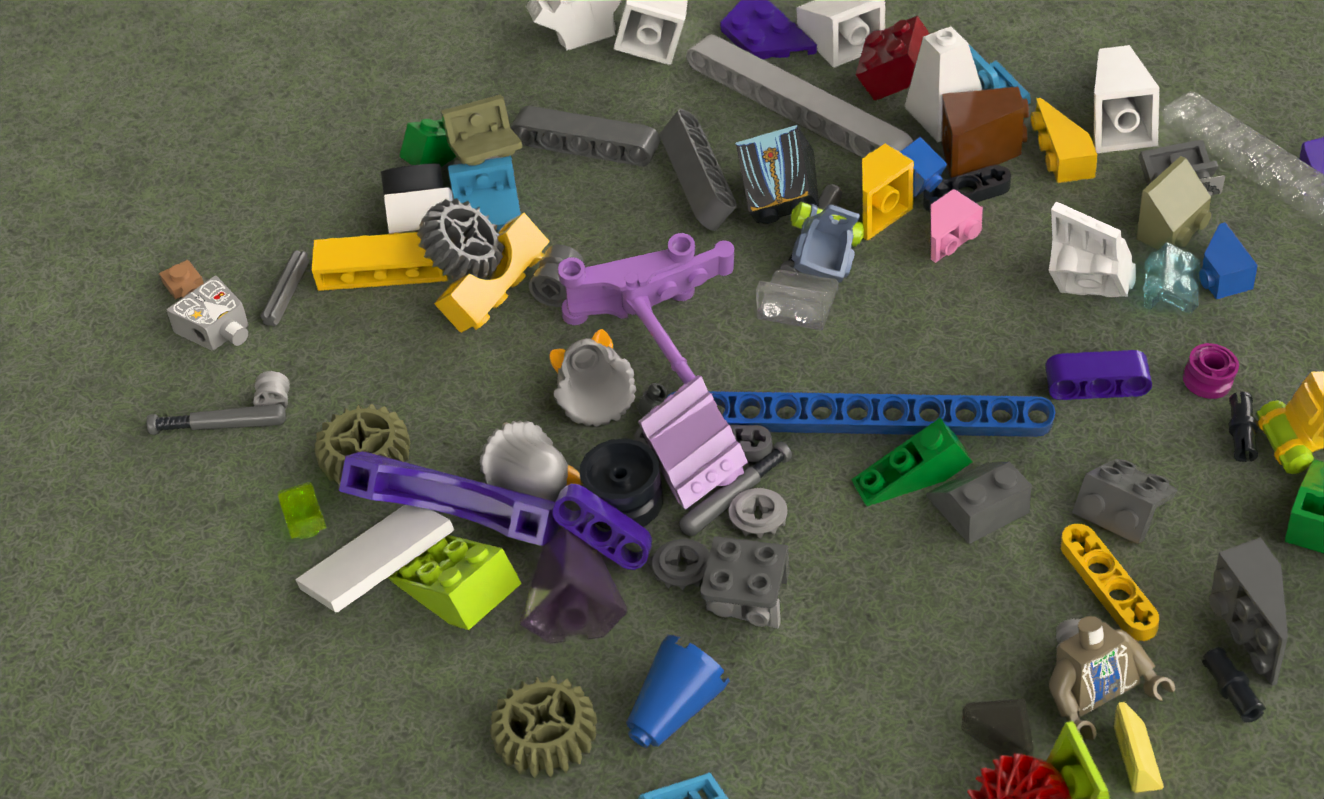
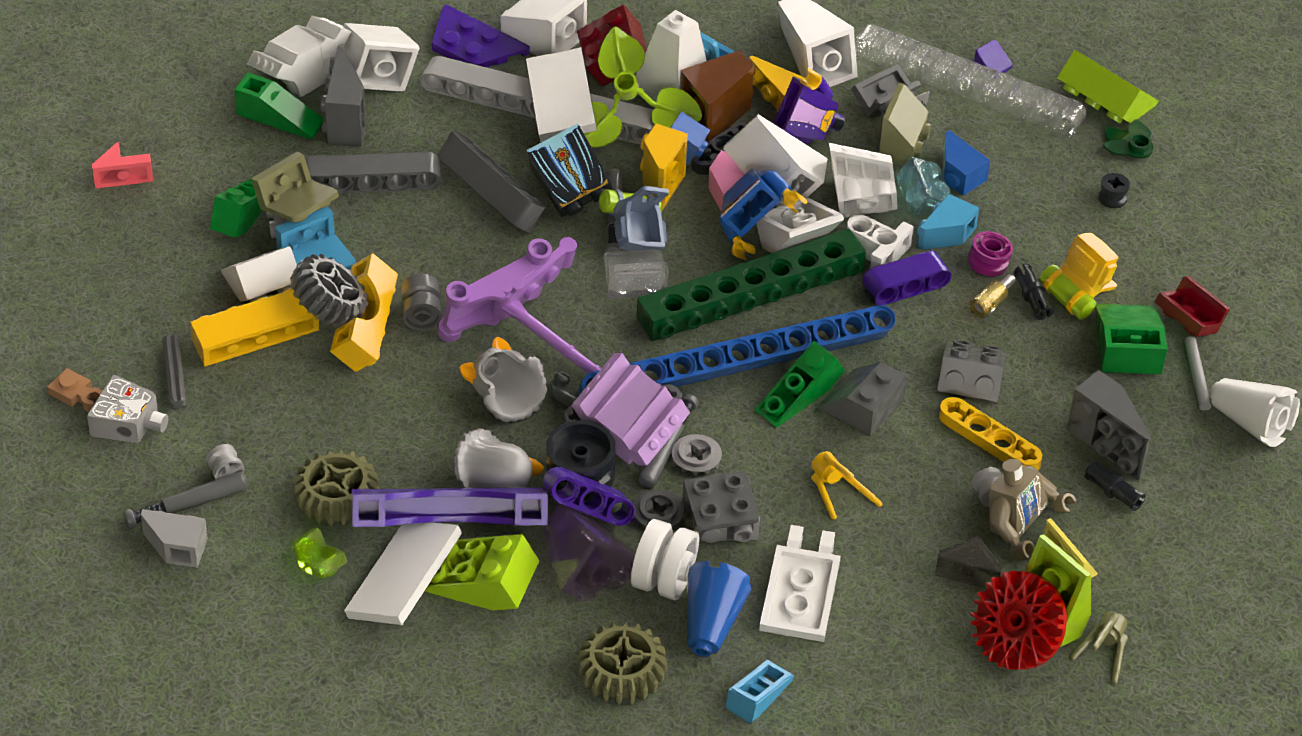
camera: 30 degrees left, 0 degrees up
(181, 455) = (175, 536): none -> light grey slope
(350, 81) = (116, 170): none -> coral slope
(411, 178) = (242, 248): black tyre -> none
(528, 52) = (274, 106): none -> green slope
(589, 61) = (343, 103): none -> dark grey slope
(641, 617) = (664, 559): none -> white wheel
(793, 698) = (801, 588): none -> white tile
(812, 93) = (560, 92): none -> white tile
(888, 67) = (620, 59): none -> lime plant
(897, 572) = (831, 471): none -> yellow plant
(918, 340) = (750, 284): none -> dark green brick
(949, 249) = (749, 202): none -> blue torso
(991, 287) = (784, 228): none -> white slope
(1000, 213) = (768, 147): none -> white slope
(1068, 169) = (809, 109): none -> torso
(1084, 326) = (879, 241): none -> white tile
(1176, 326) = (948, 224): none -> dark azure slope
(1189, 420) = (991, 296): none -> clear yellow piece

